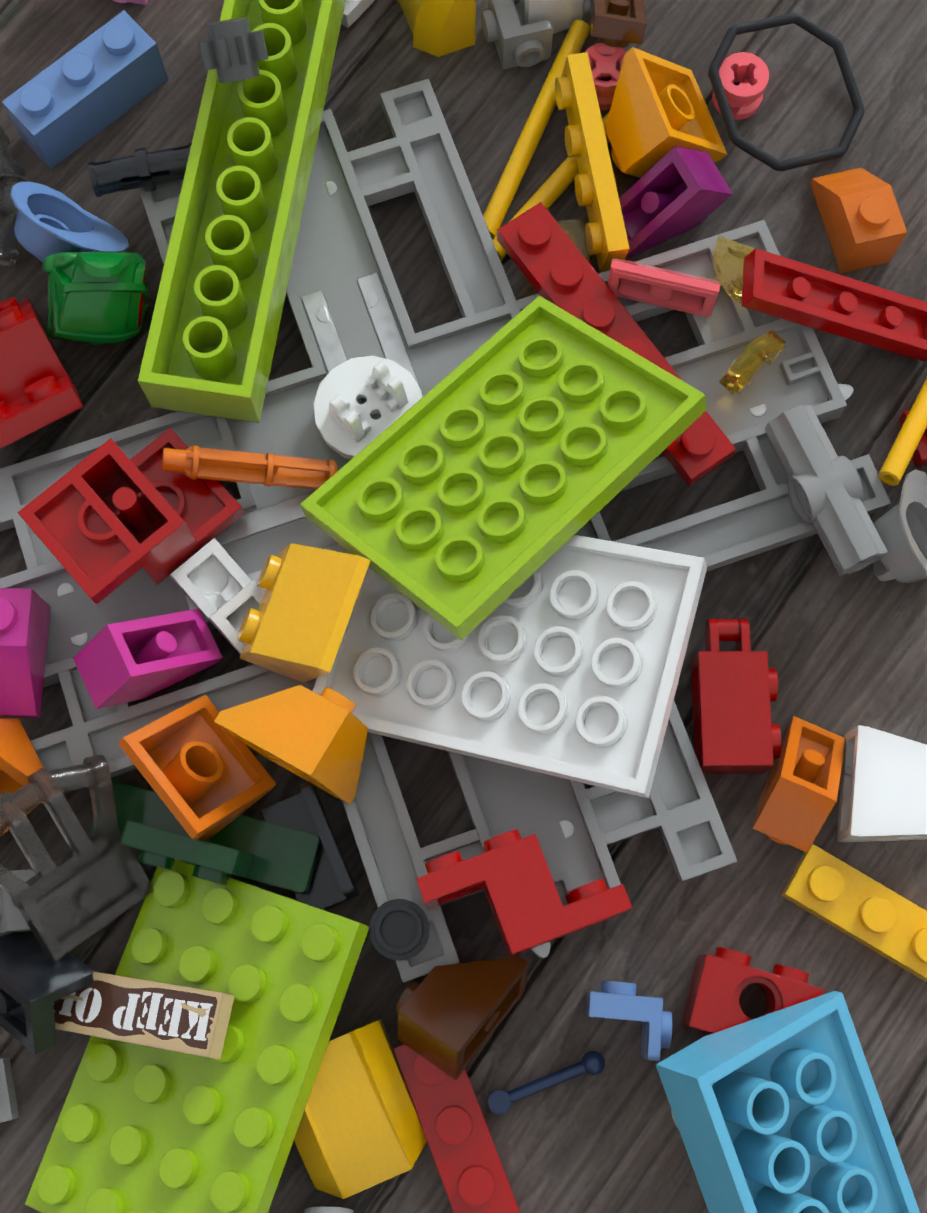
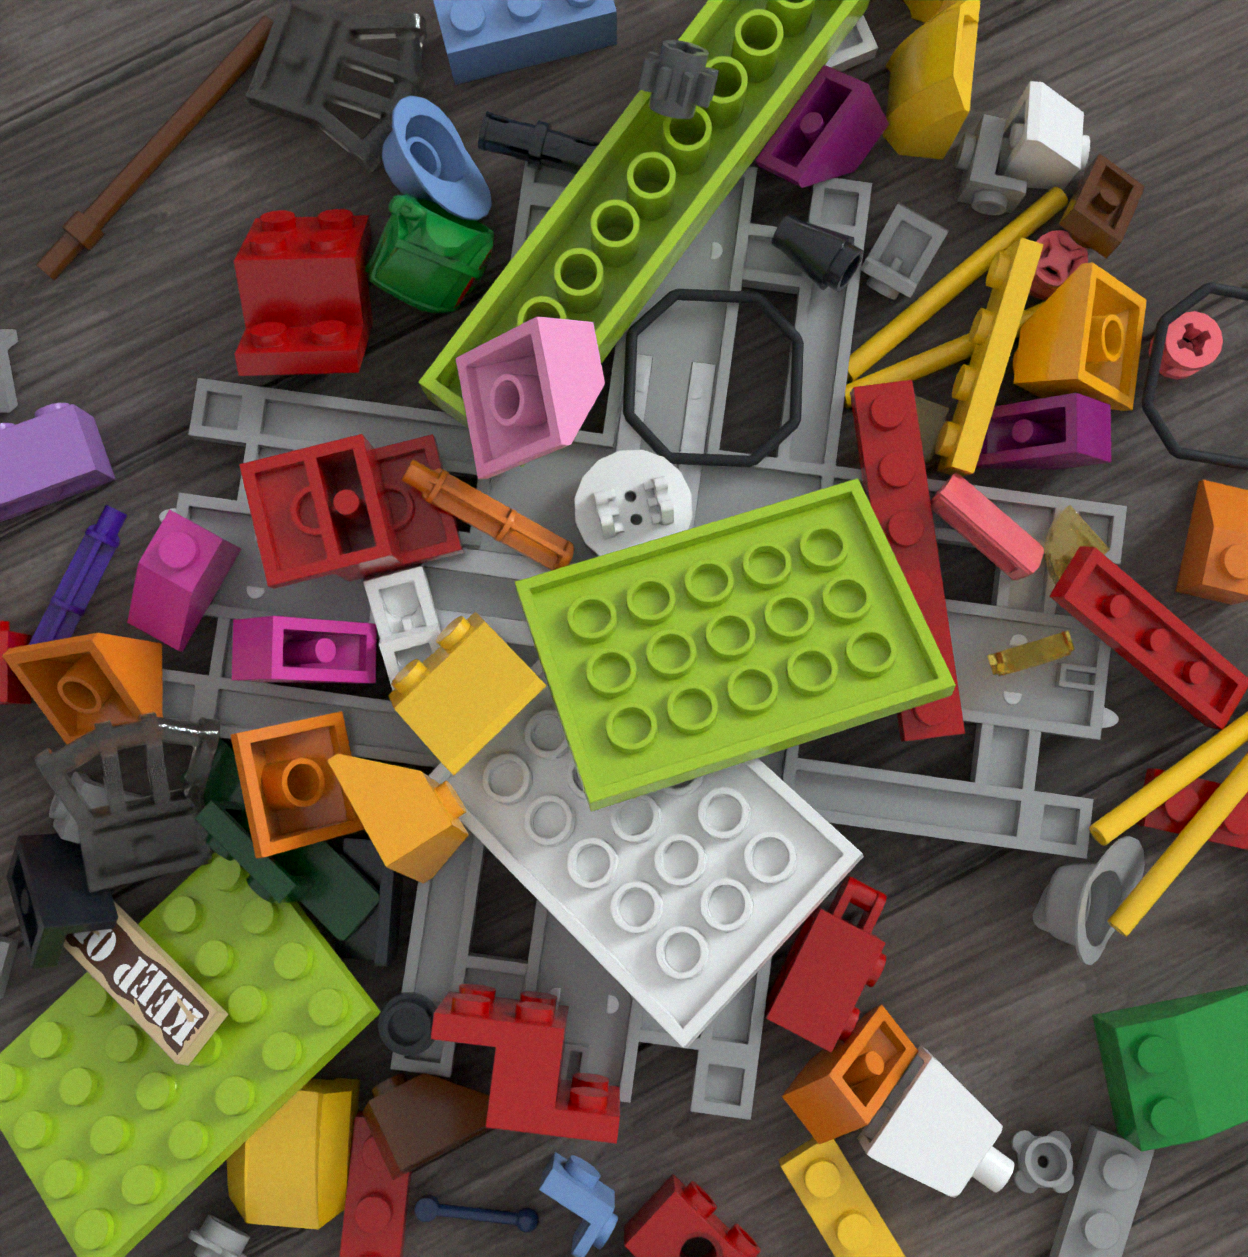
camera: 25 degrees right, 10 degrees up
(232, 335) = (529, 391): none -> bright pink slope
(352, 216) = (713, 296): none -> black piece
(371, 54) = (825, 131): none -> magenta slope
(416, 143) = (819, 252): none -> black cone
(481, 120) = (902, 252): none -> light grey bracket
(825, 489) = (1028, 819): light grey piece -> none

